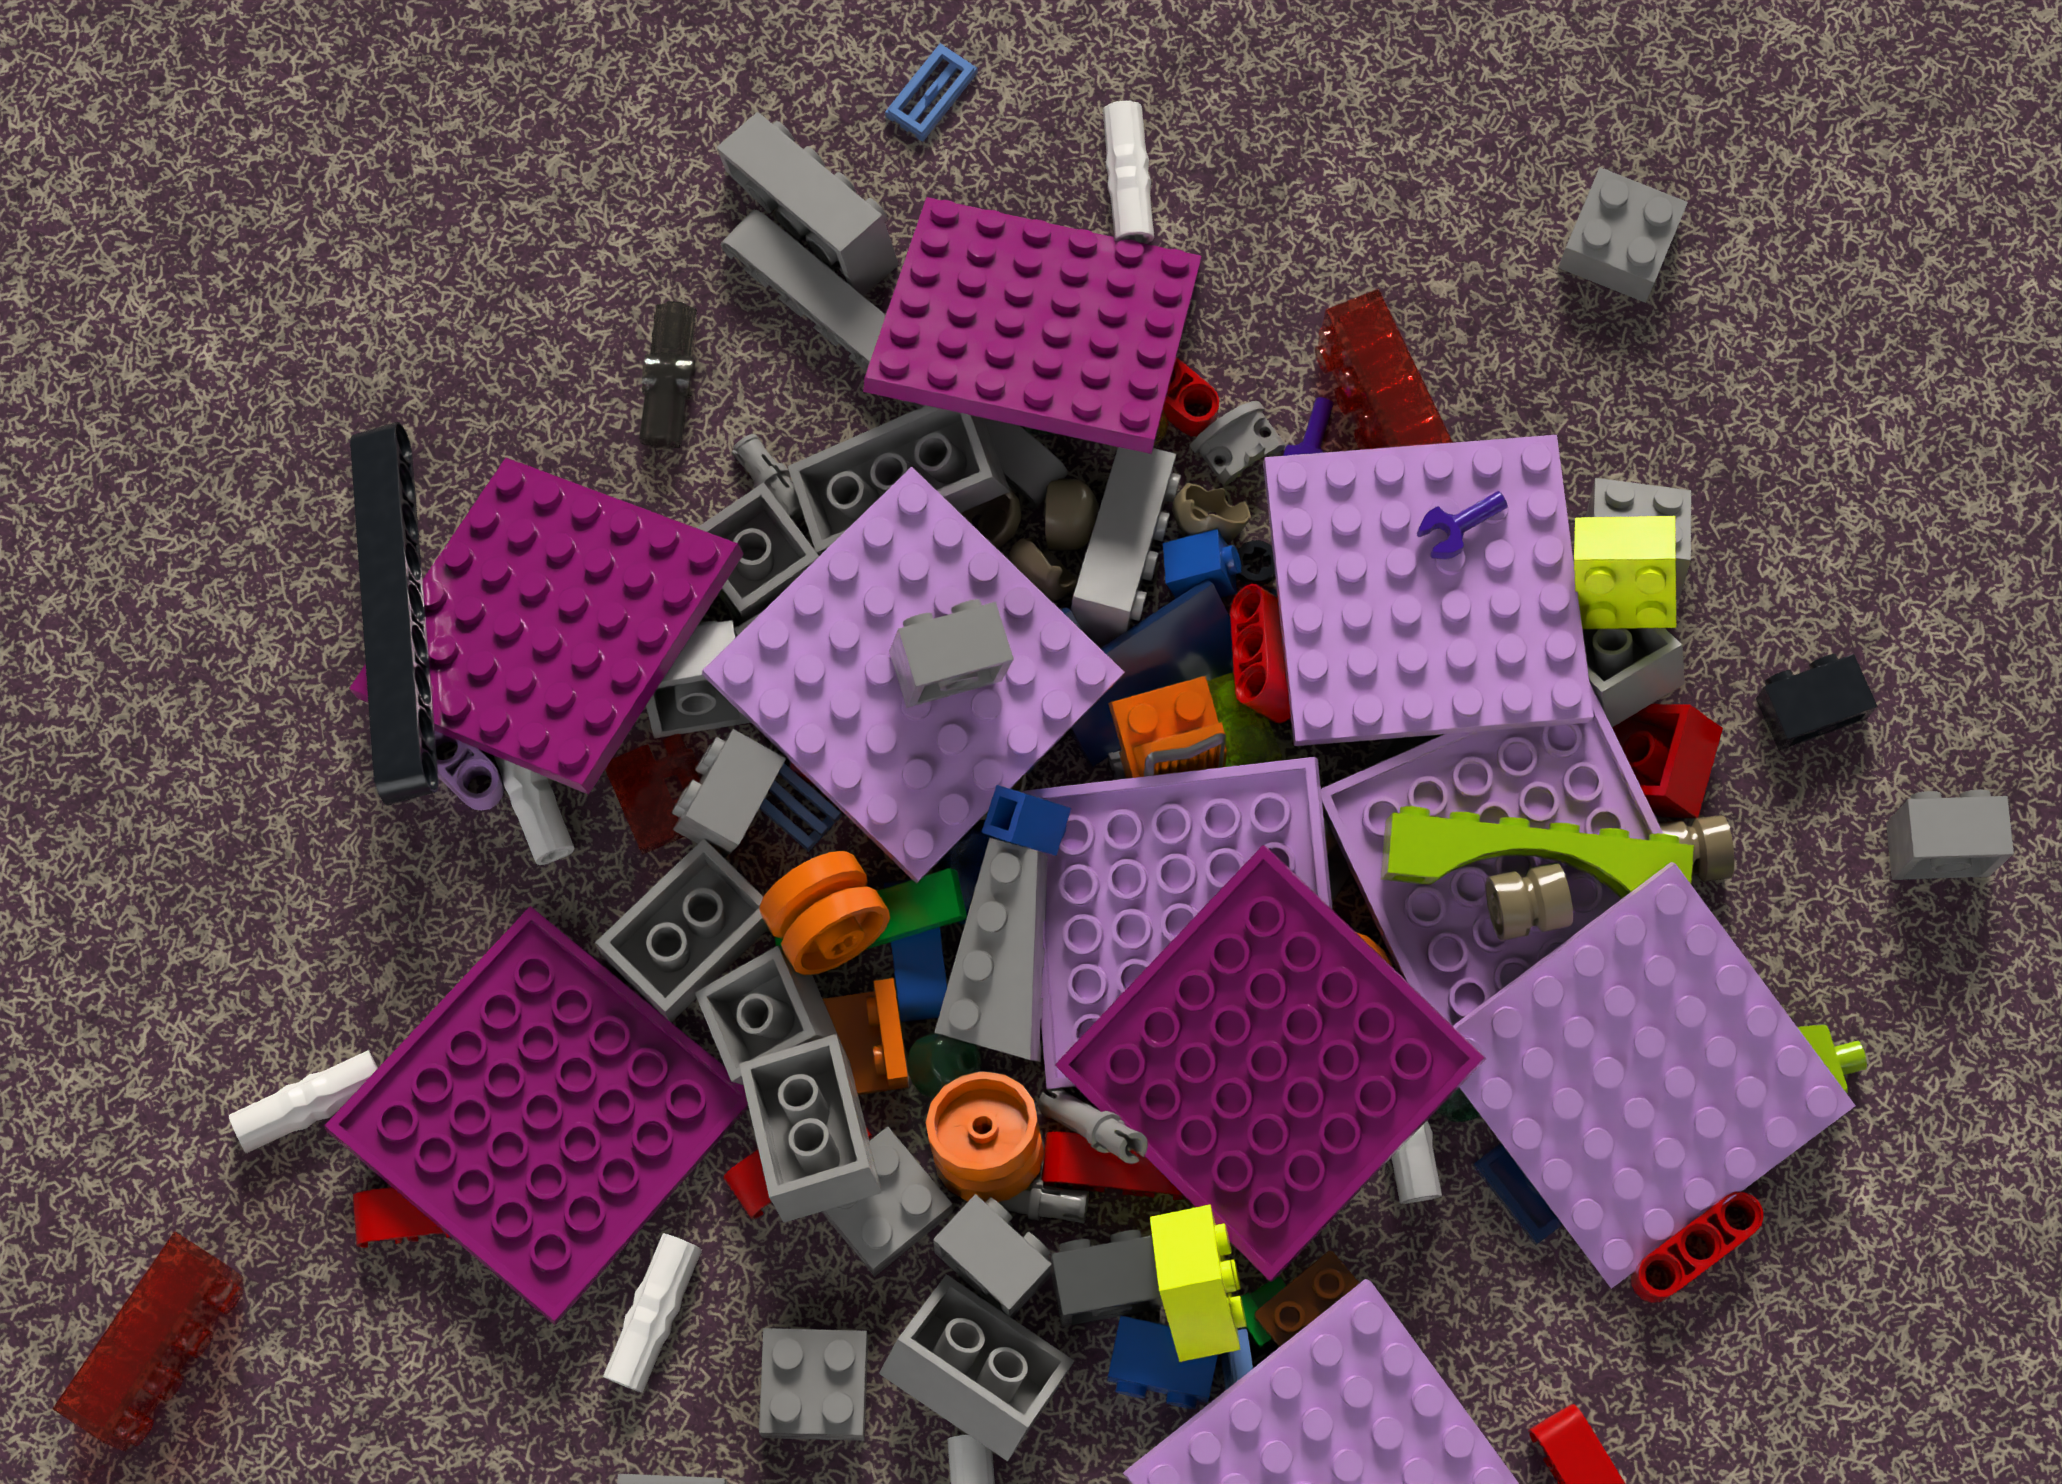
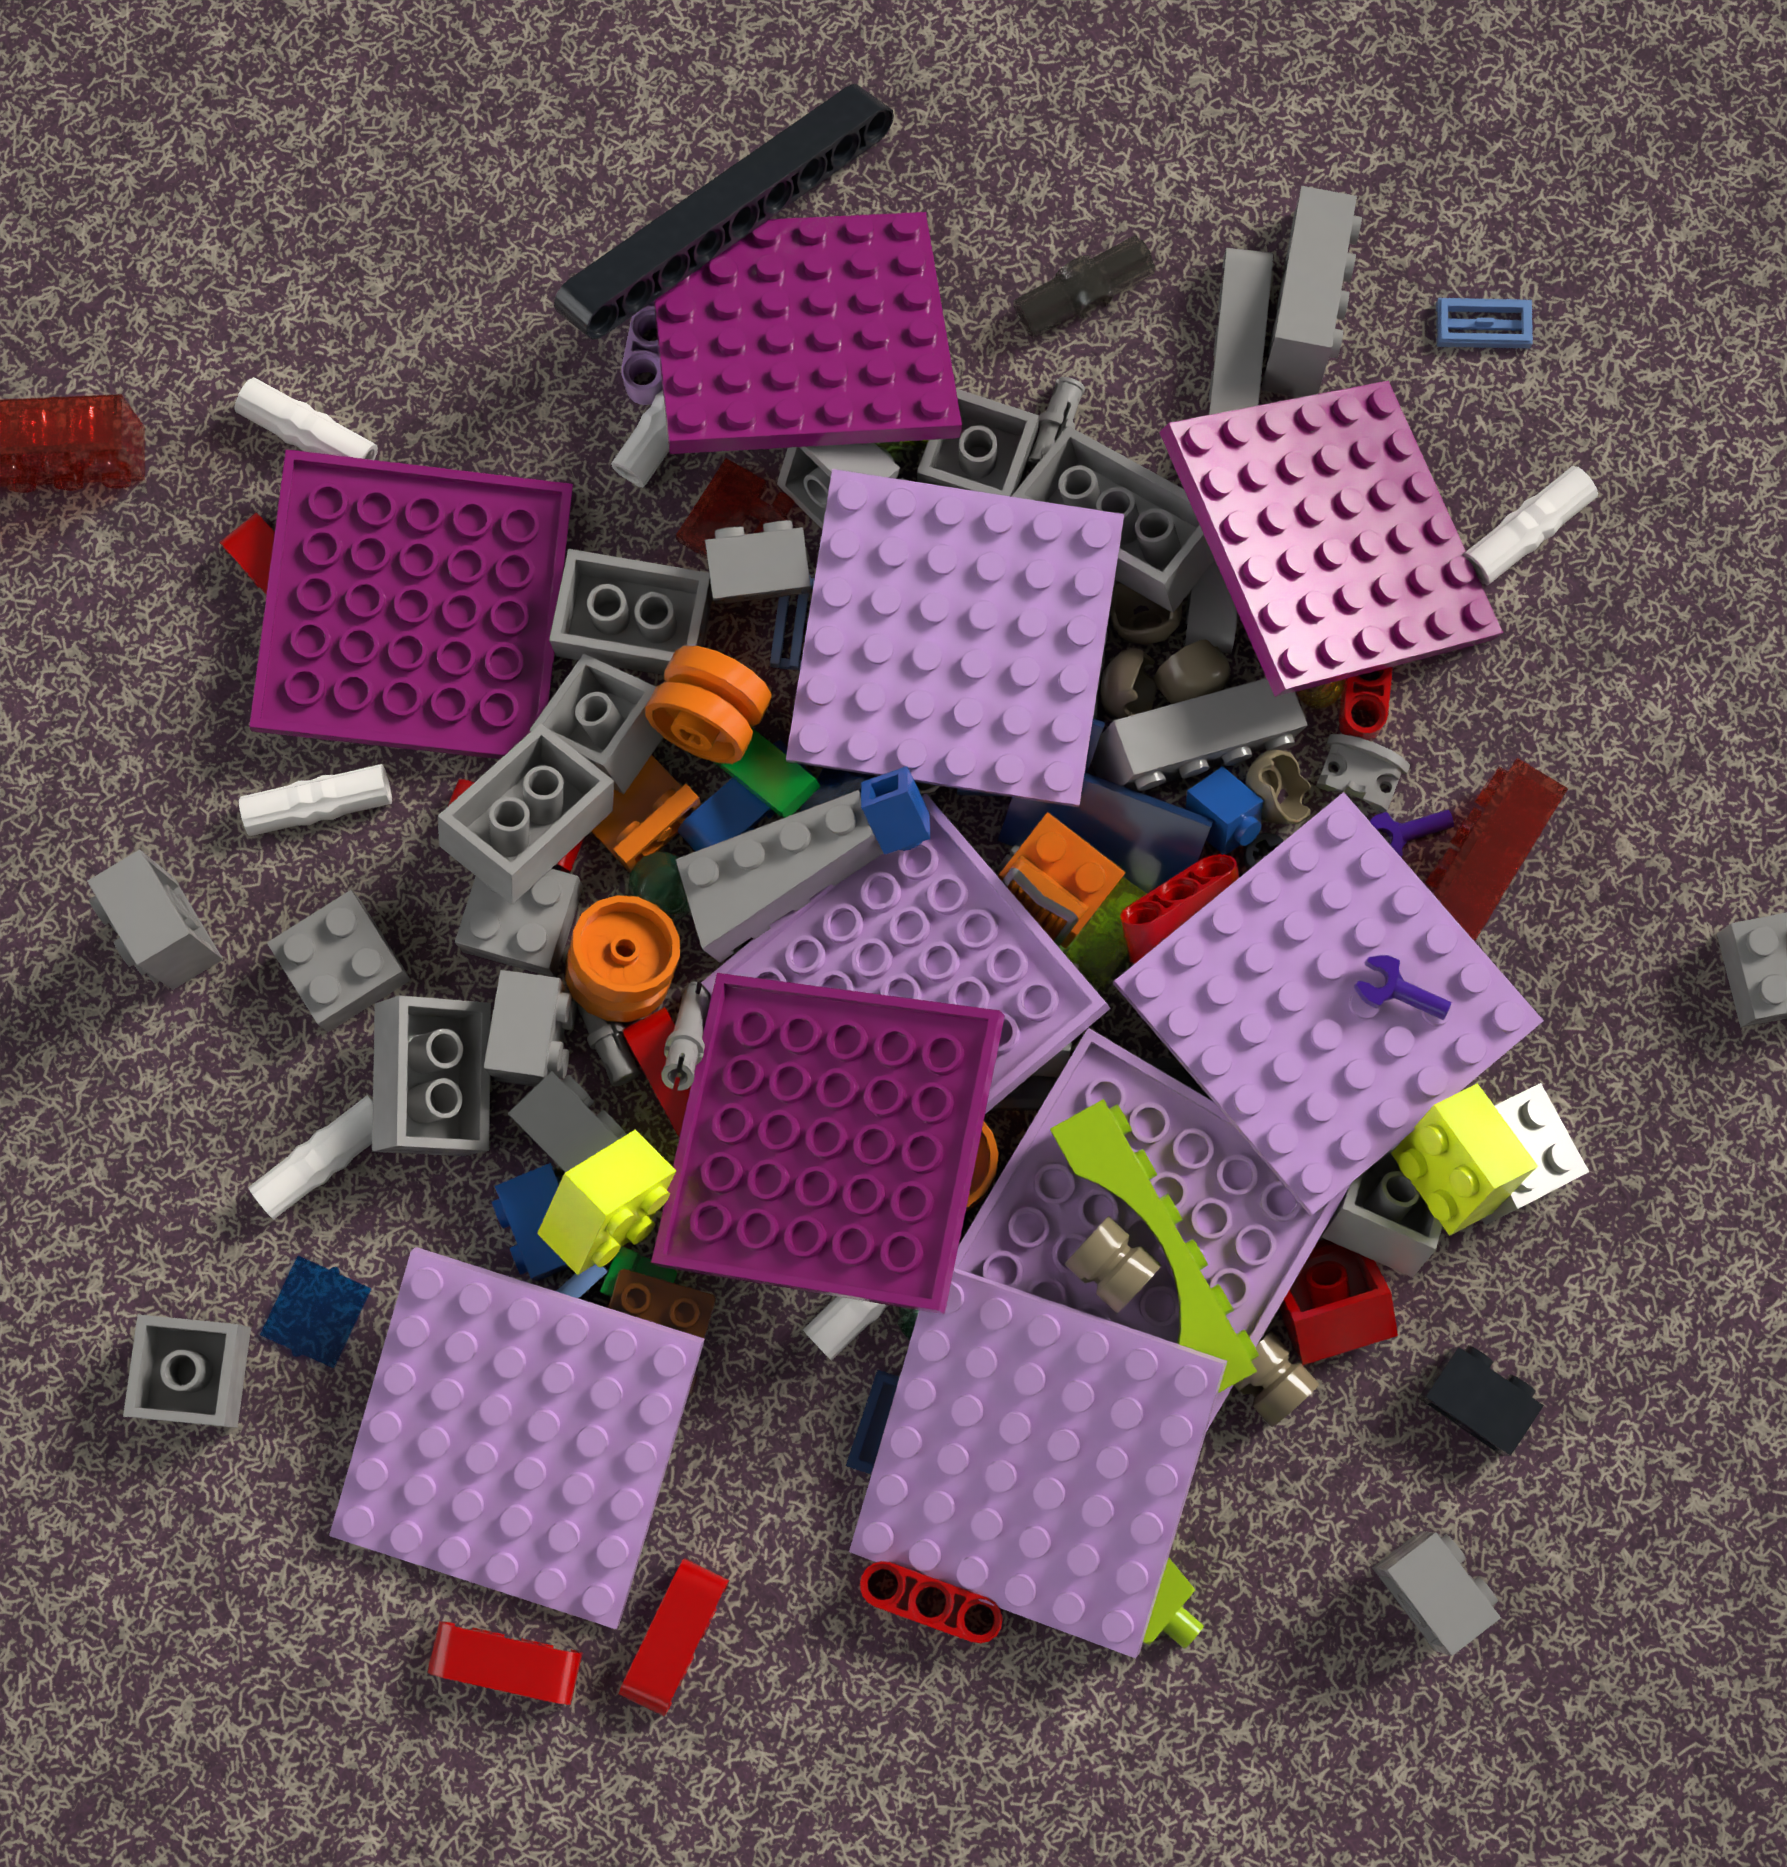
camera: 60 degrees right, 5 degrees up
(950, 652) = (977, 646): light grey brick -> none

